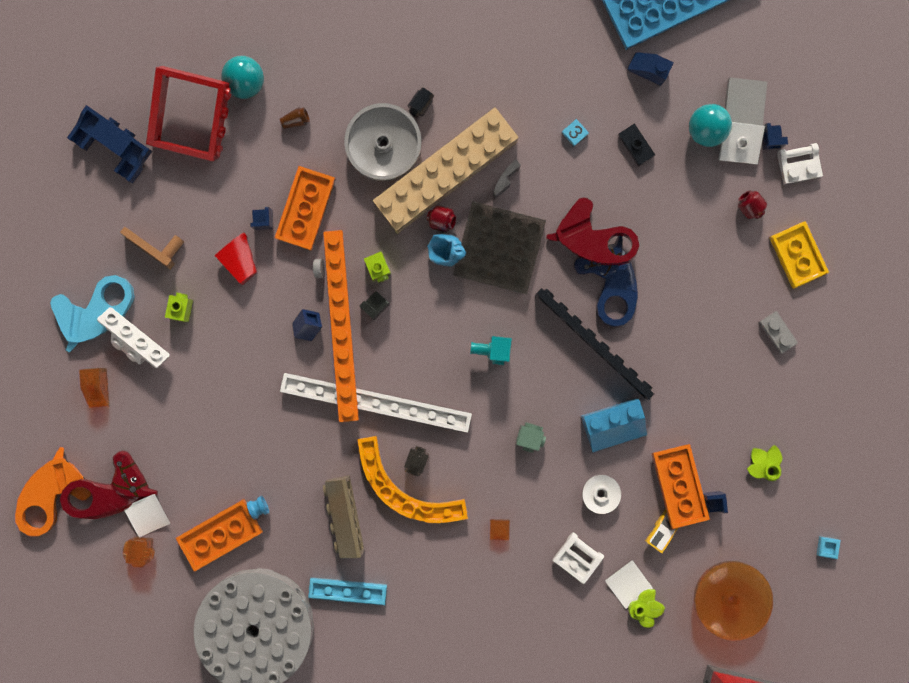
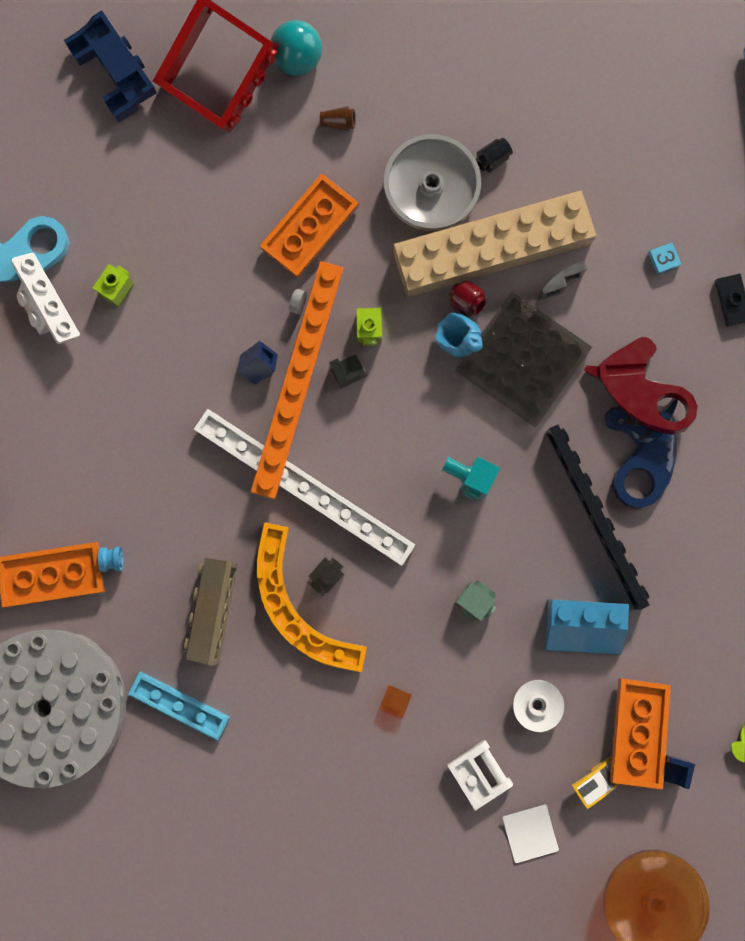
camera: 20 degrees right, 5 degrees down
(162, 257) = (117, 218): medium nougat piece -> none
(238, 259) = (206, 254): red slope -> none
(262, 219) = (254, 219): dark blue panel -> none
(648, 608) = (545, 872): lime plate -> none

